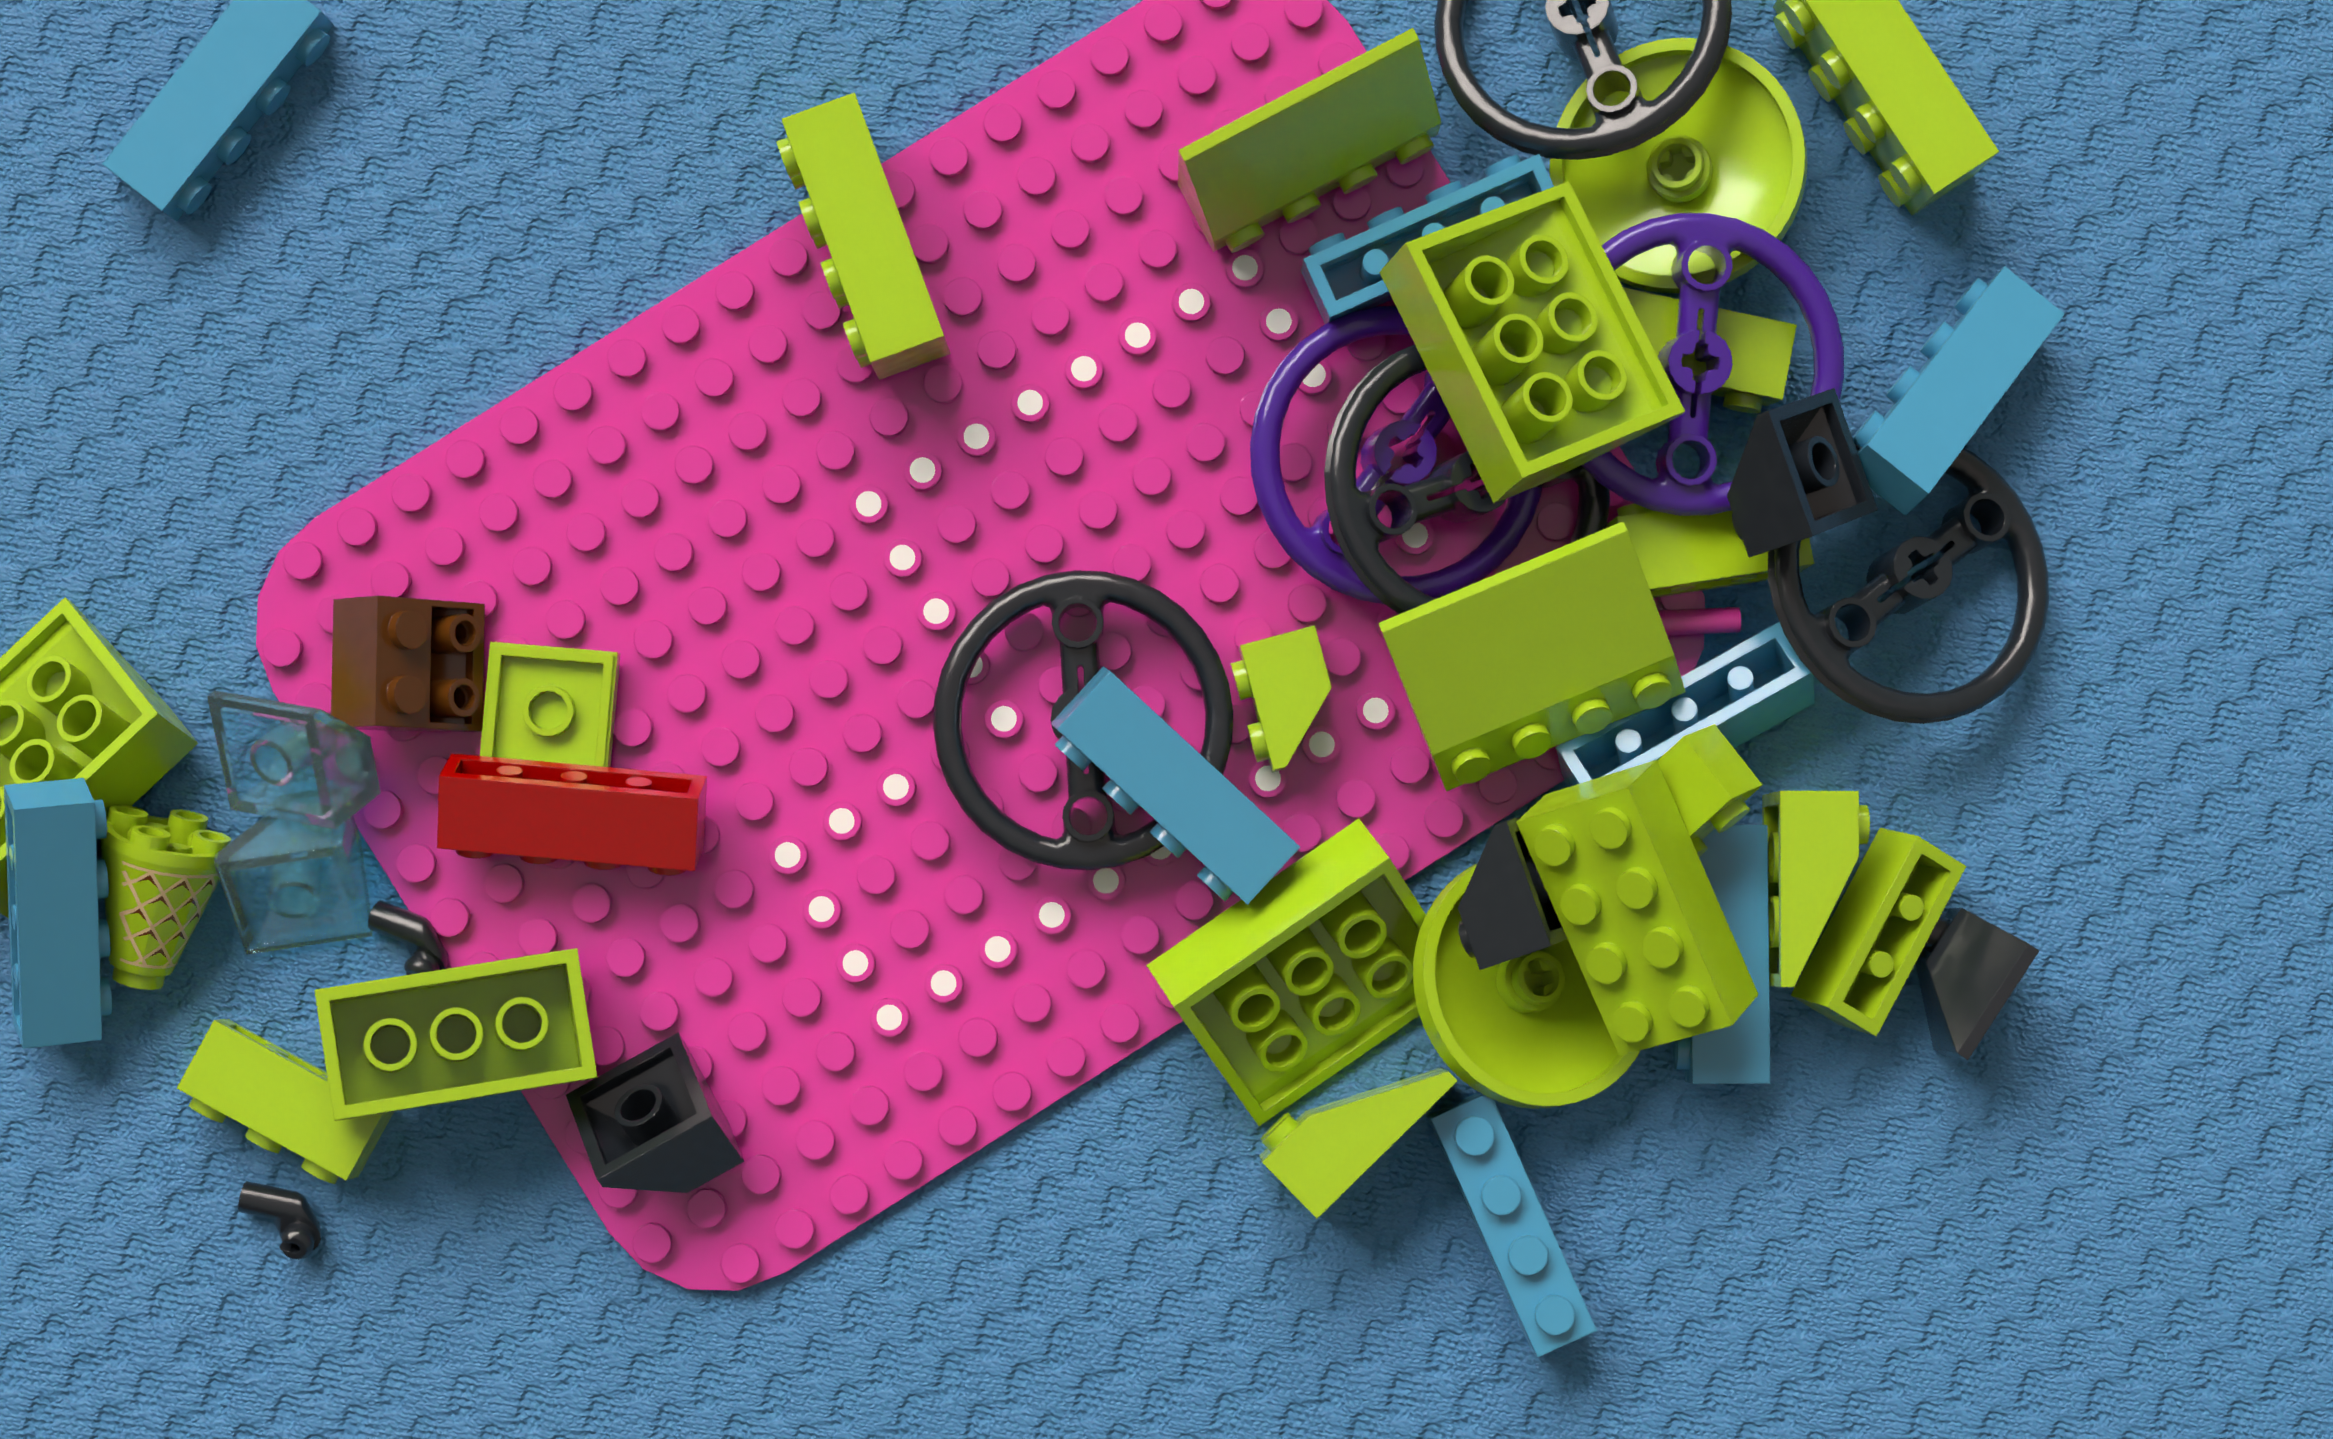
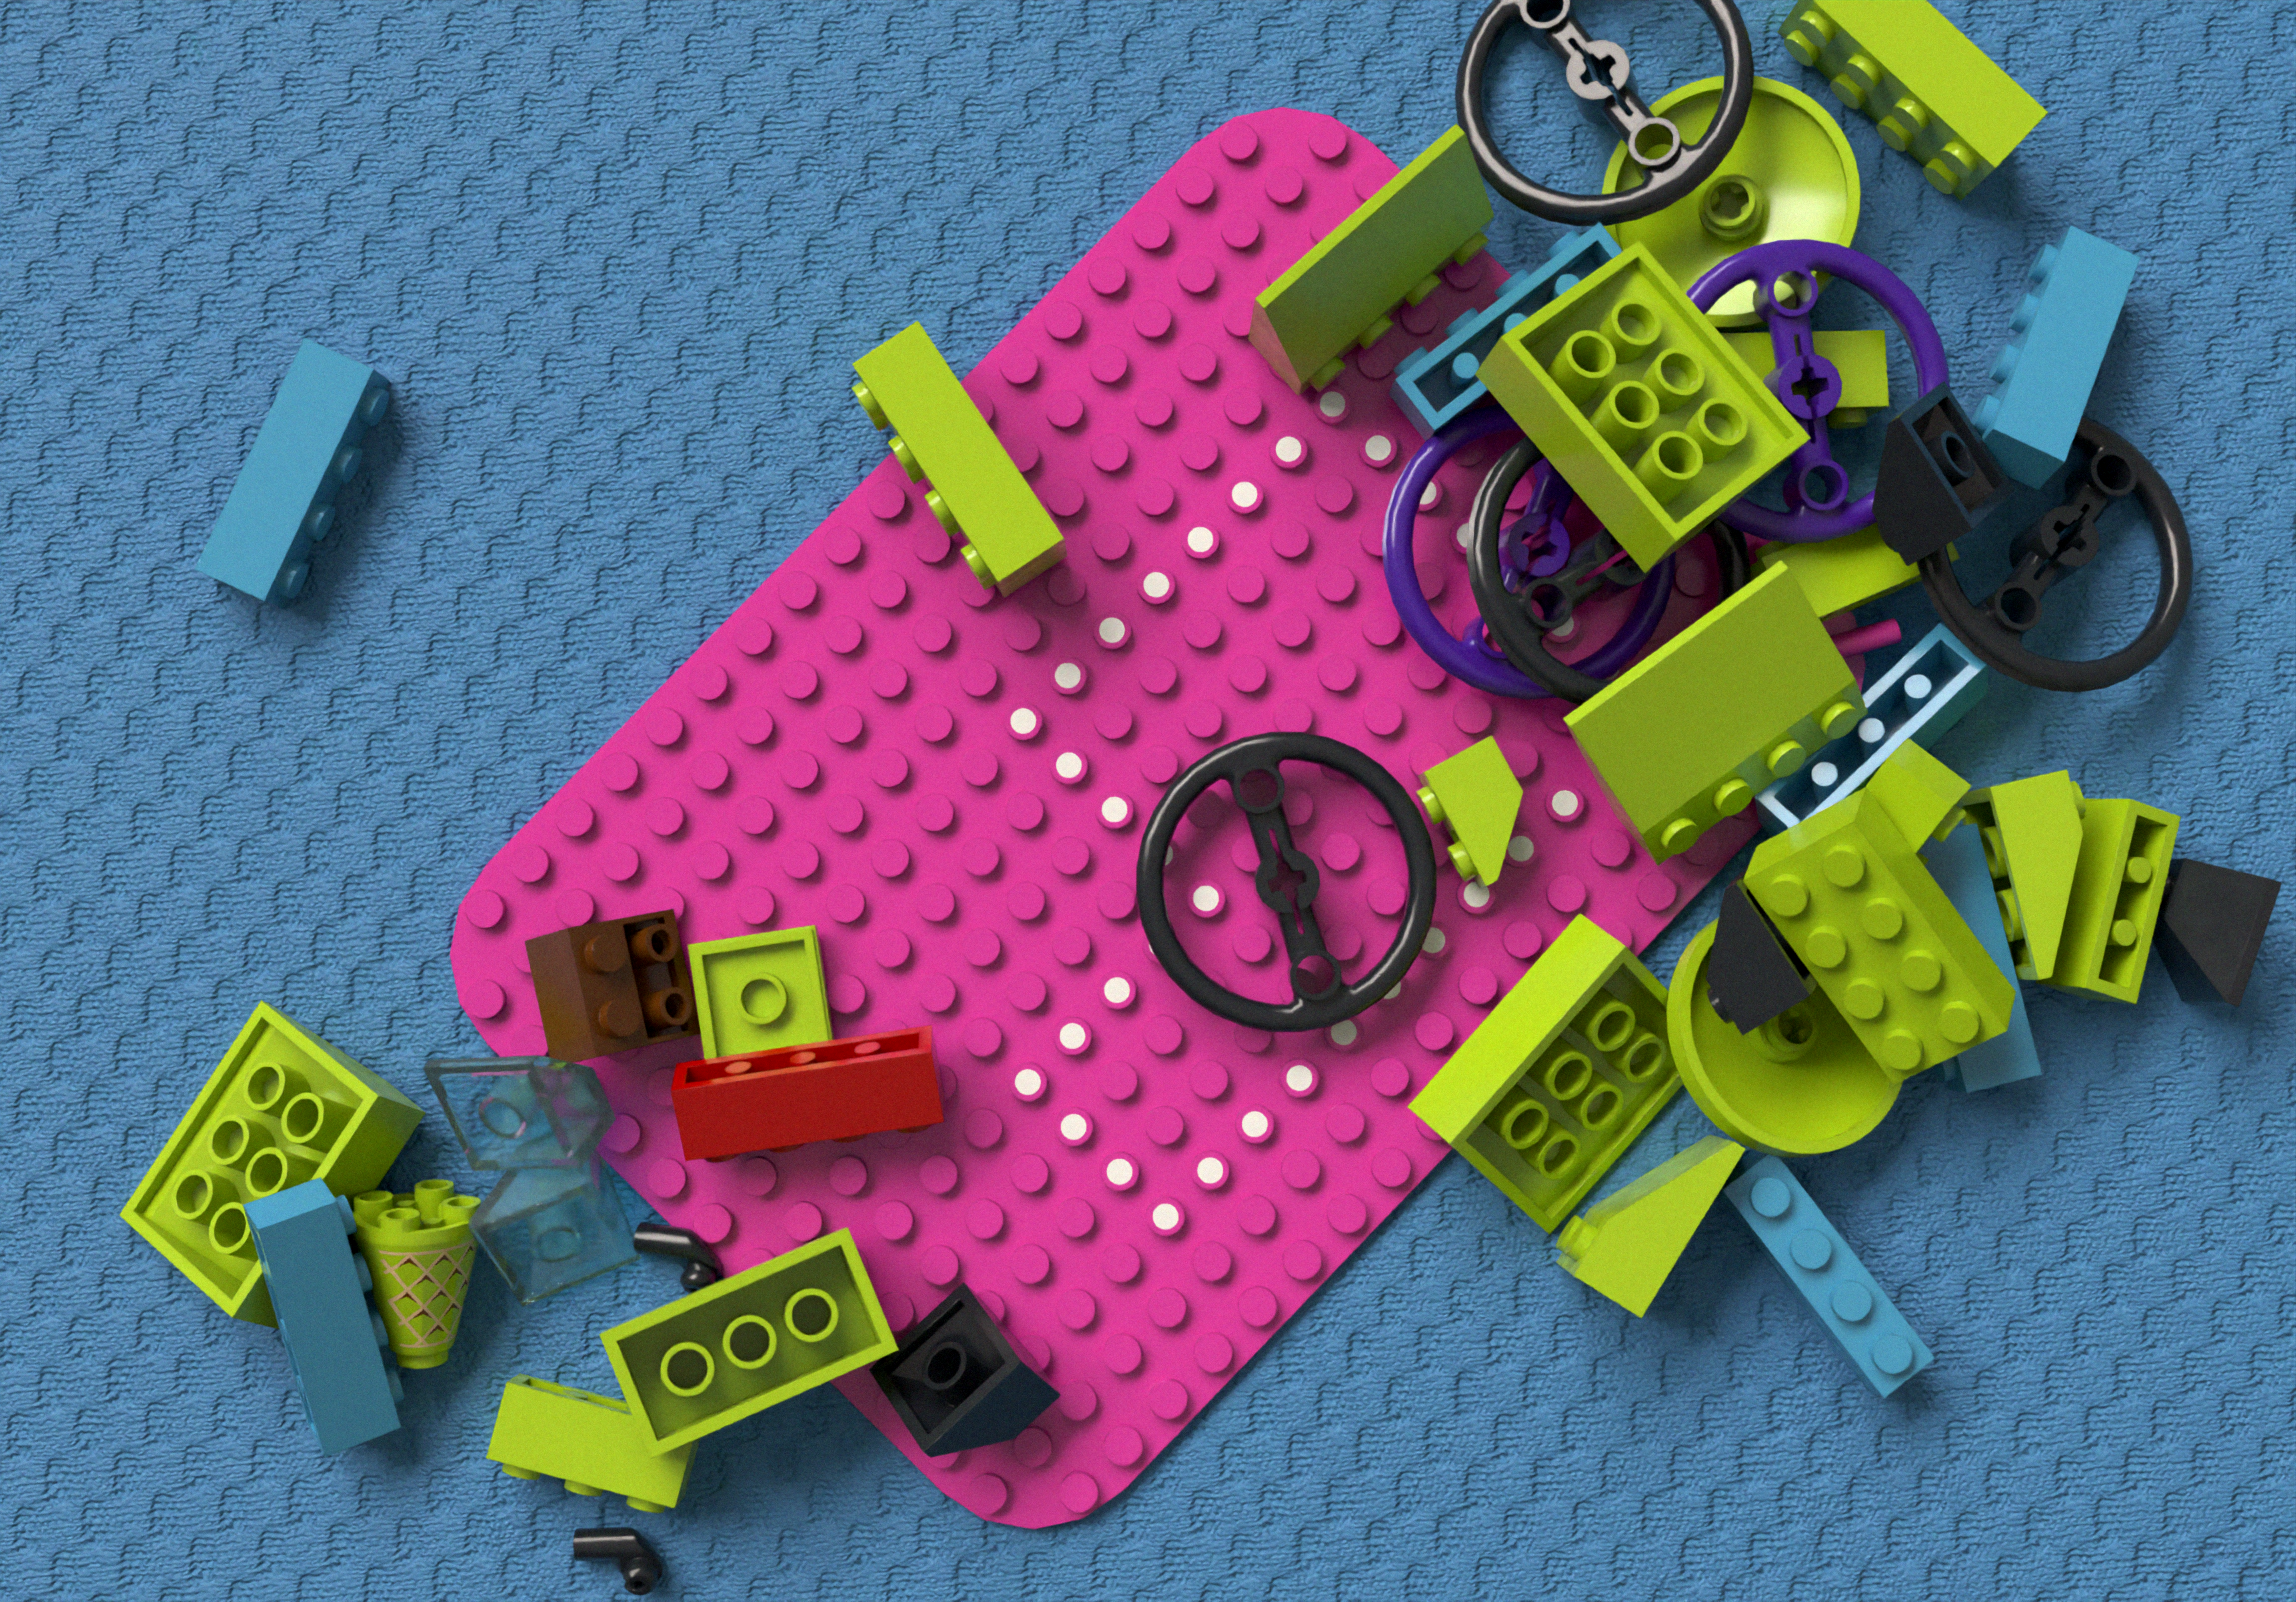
camera: 15 degrees left, 0 degrees up
(1174, 785) = (1395, 925): dark azure brick -> none

